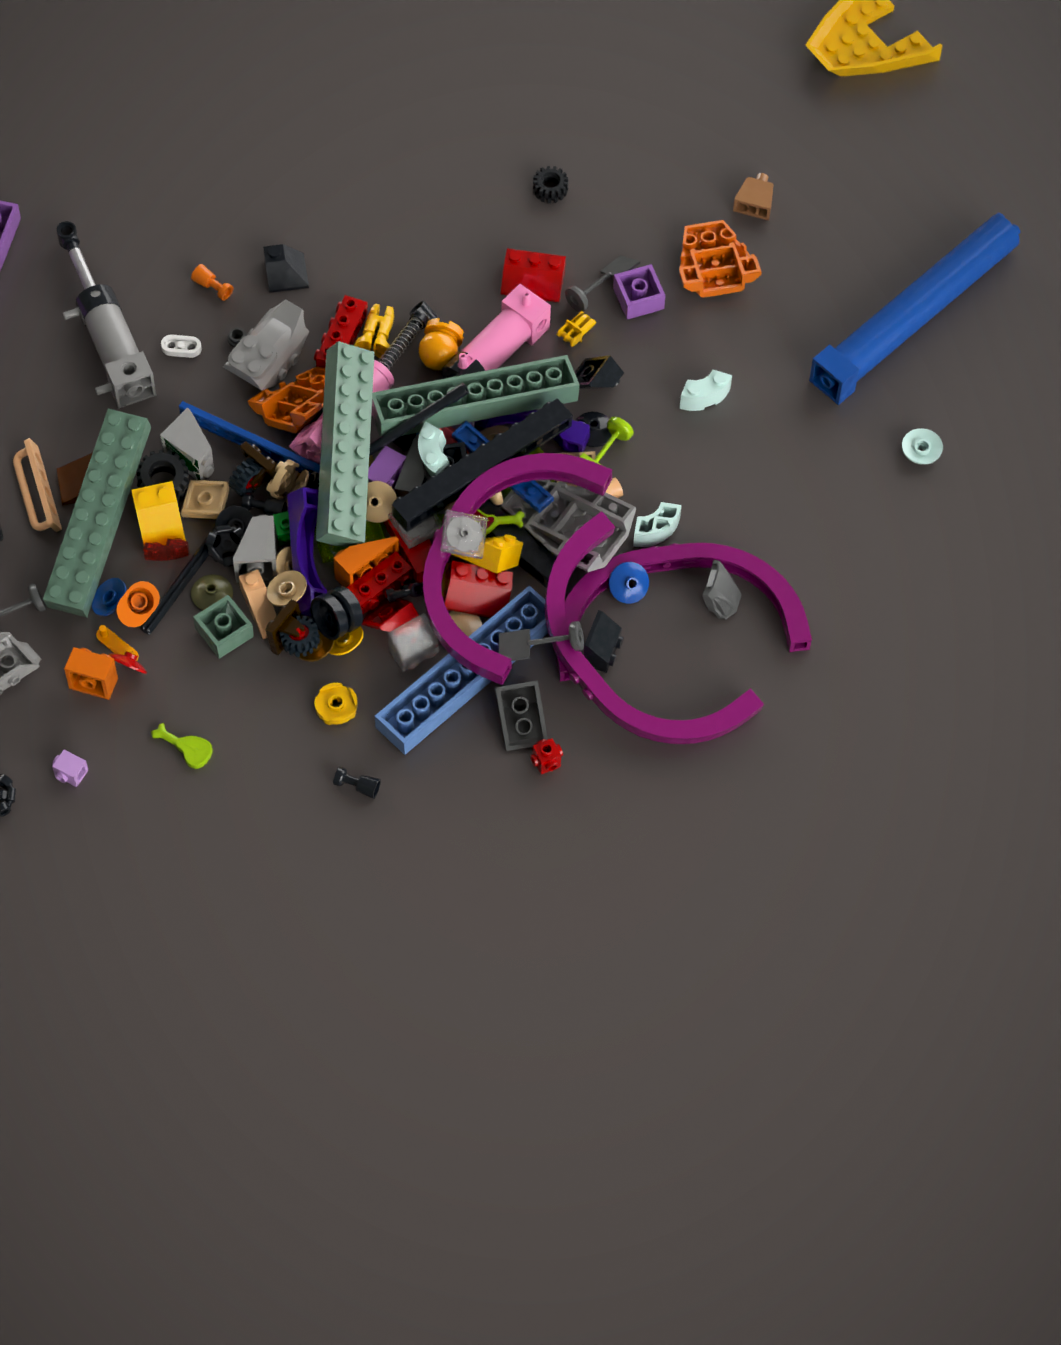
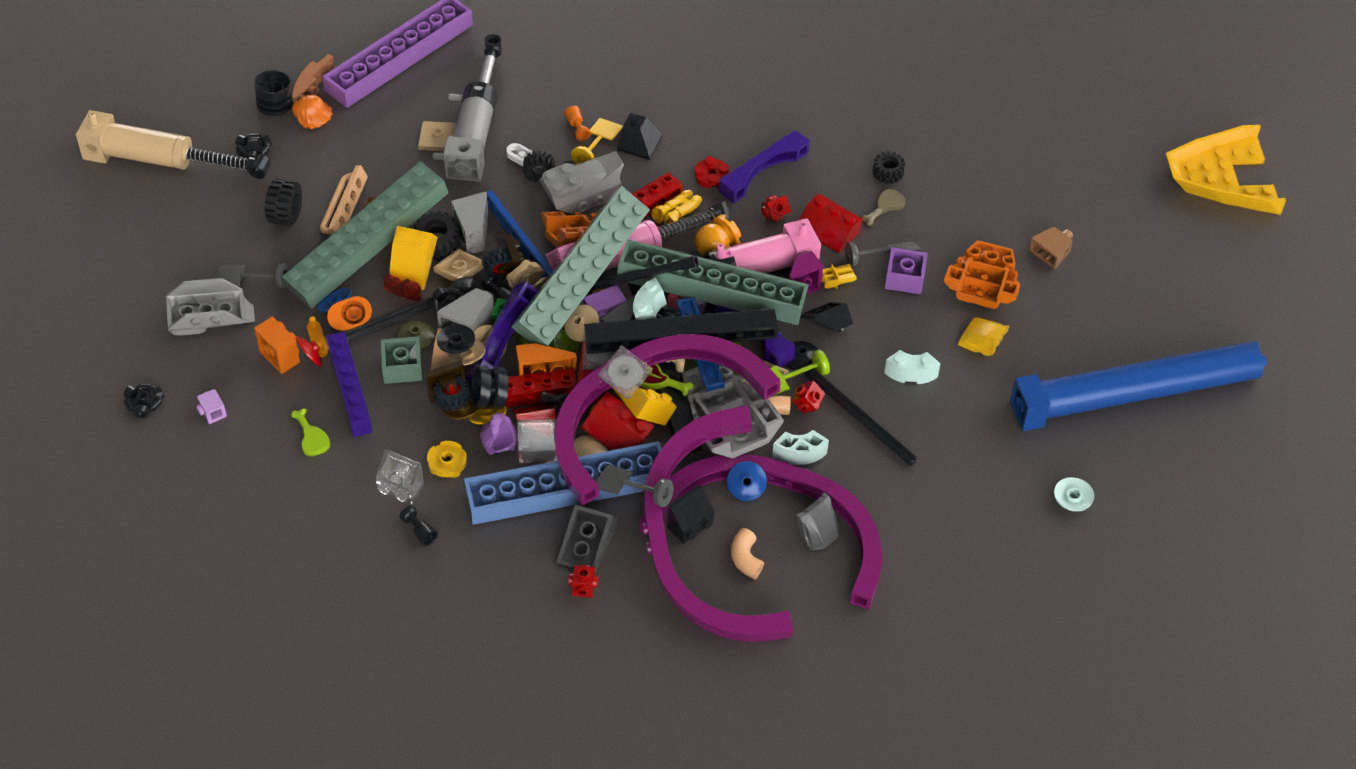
camera: 30 degrees right, 10 degrees down
(78, 365) = (435, 135): none -> tan plate
(211, 351) = (537, 159): none -> black tyre
(211, 694) = (349, 384): none -> dark purple arch
(244, 275) = (603, 129): none -> yellow piece
(266, 573) = (455, 339): none -> black dish
(308, 745) = (399, 477): none -> clear slope
(370, 655) = (499, 434): none -> medium lavender hair
(378, 264) = (708, 165): none -> red plate
(442, 210) = (788, 149): none -> dark purple arch
(472, 283) = (775, 207): none -> red brick
(550, 339) = (807, 270): none -> magenta slope
(572, 222) = (888, 201): none -> dark tan piece
(630, 469) = (808, 397): none -> red brick
(669, 656) = (742, 556): none -> light nougat cylinder
(688, 464) = (861, 416): none -> black axle
(748, 325) = (983, 336): none -> yellow slope

